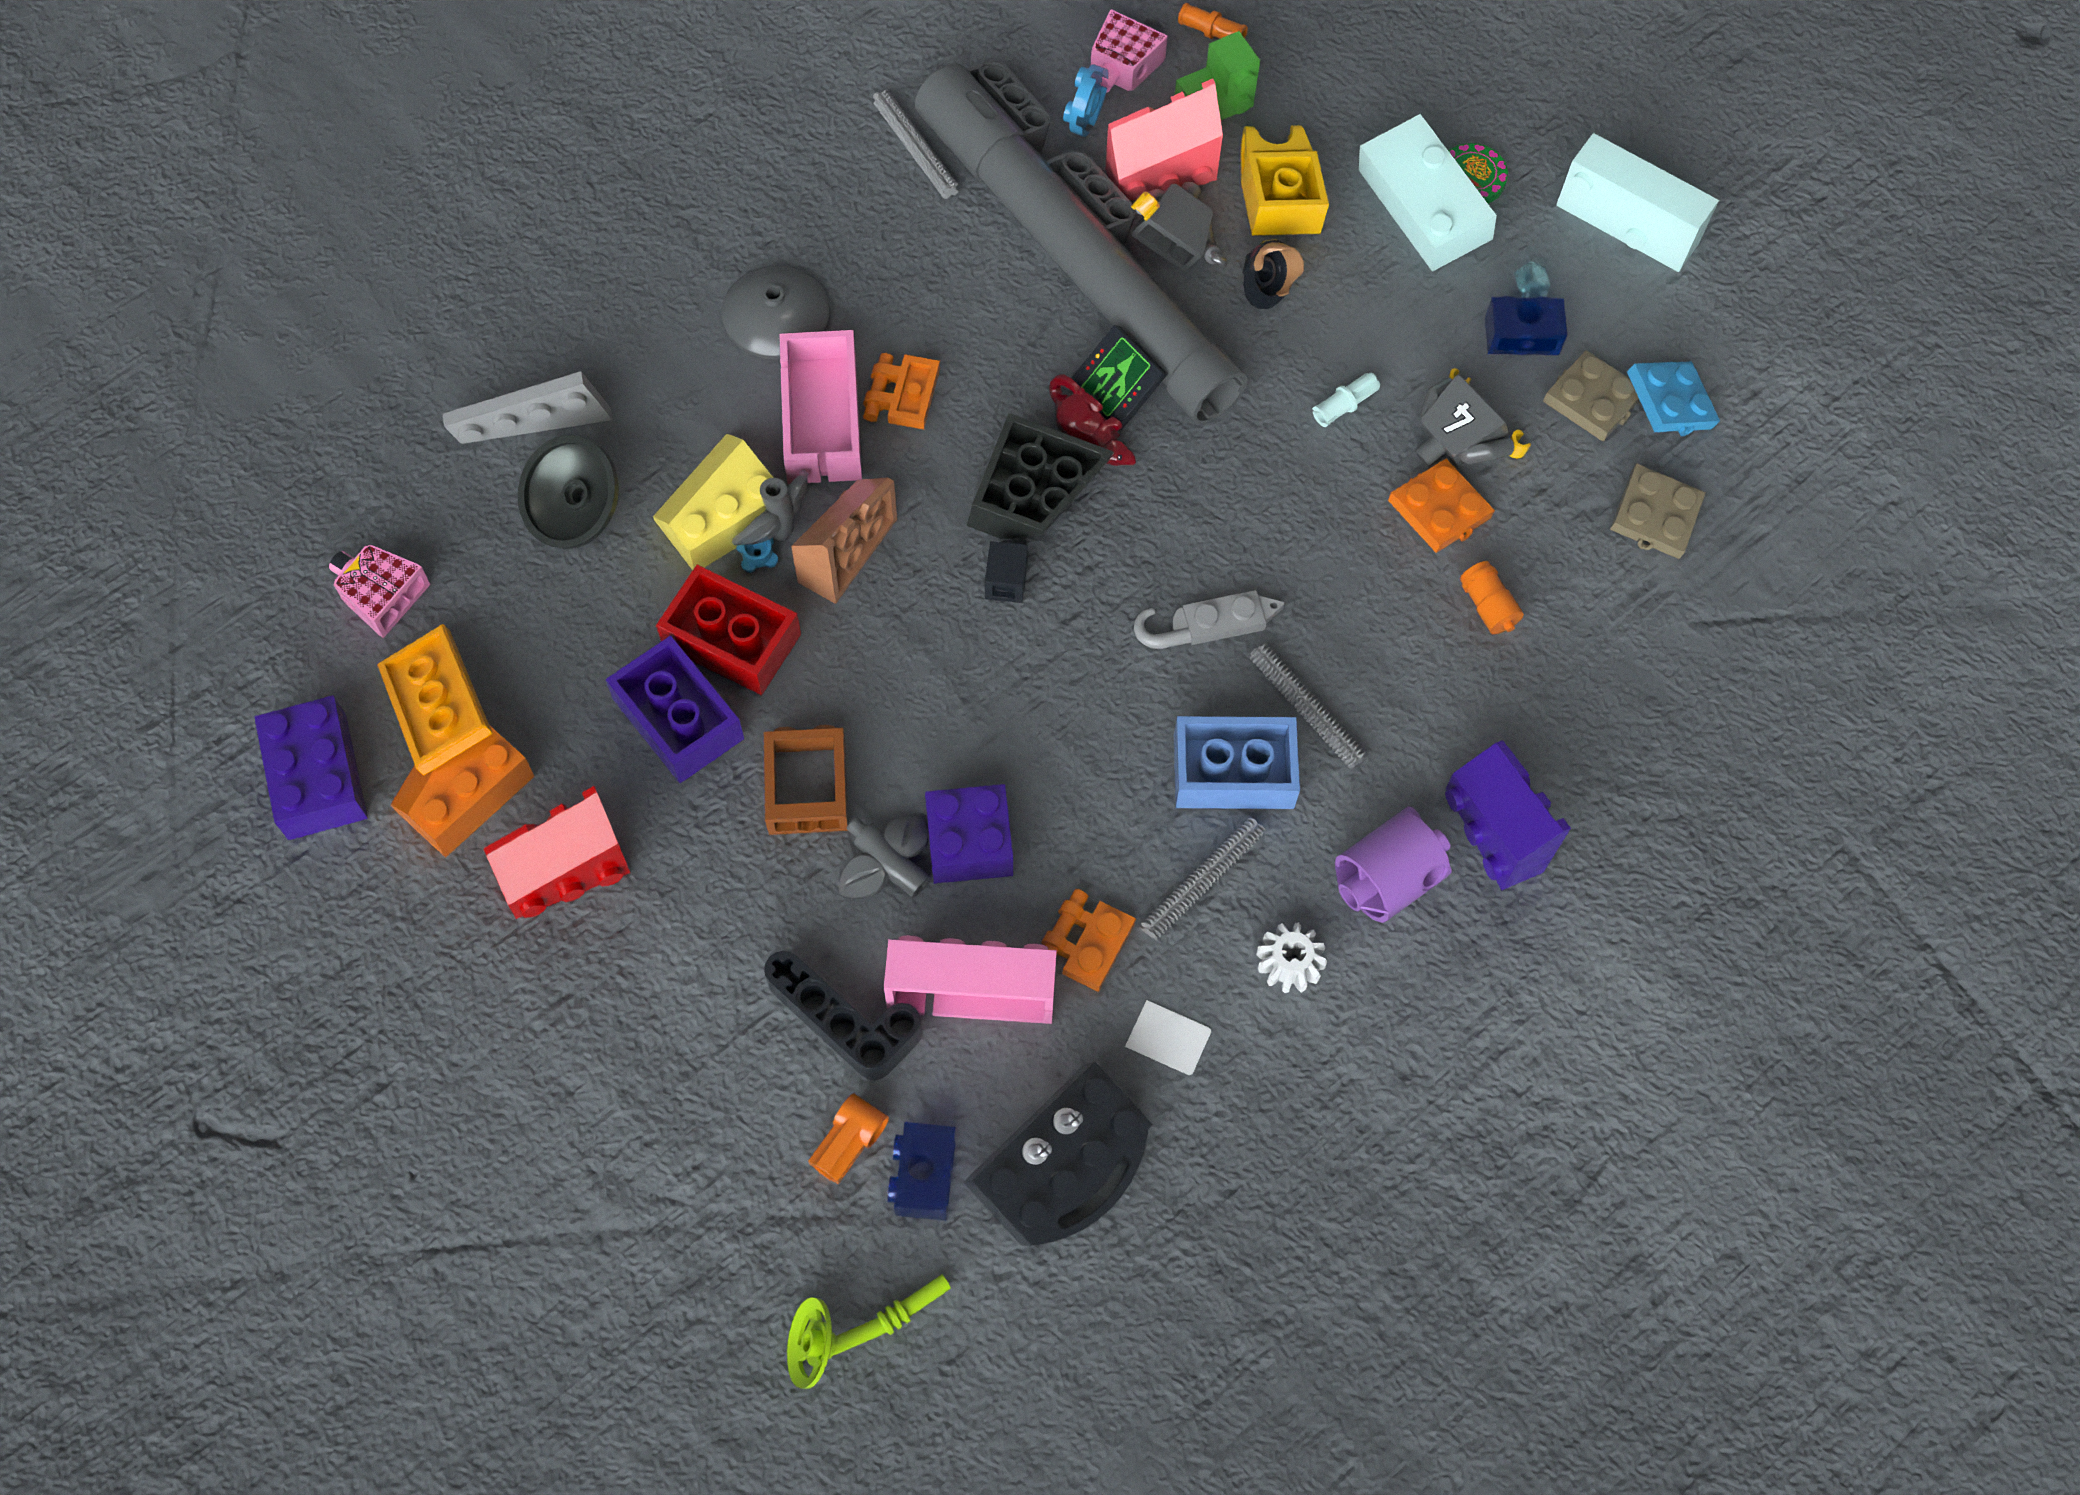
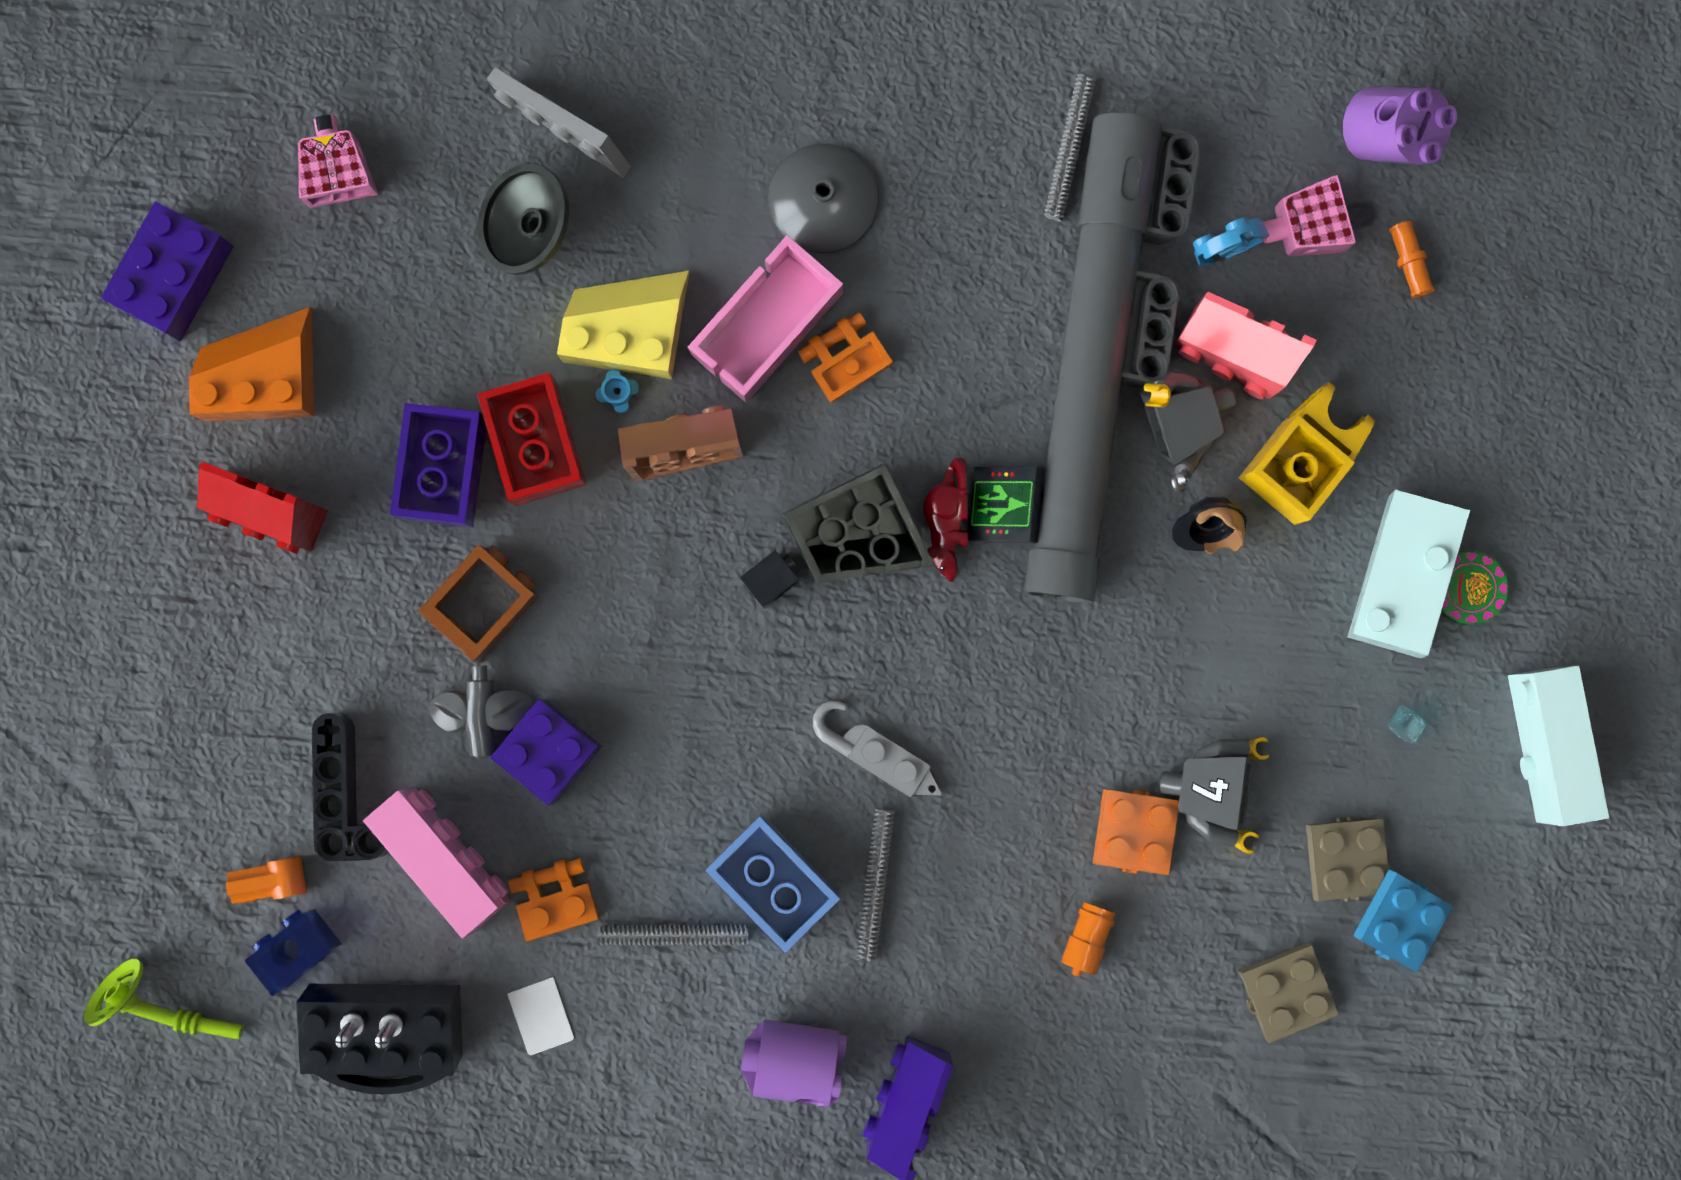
camera: 50 degrees right, 20 degrees up
(434, 699) = (286, 301): light orange tile -> none
(780, 506) = (647, 381): dark grey plant -> none
(1234, 71) = (1350, 327): bright green brick -> none
(1297, 970) = (659, 1059): white gear -> none
(1345, 399) = (1161, 681): light aqua axle -> none
(1525, 326) = (1338, 748): clear blue brick -> none

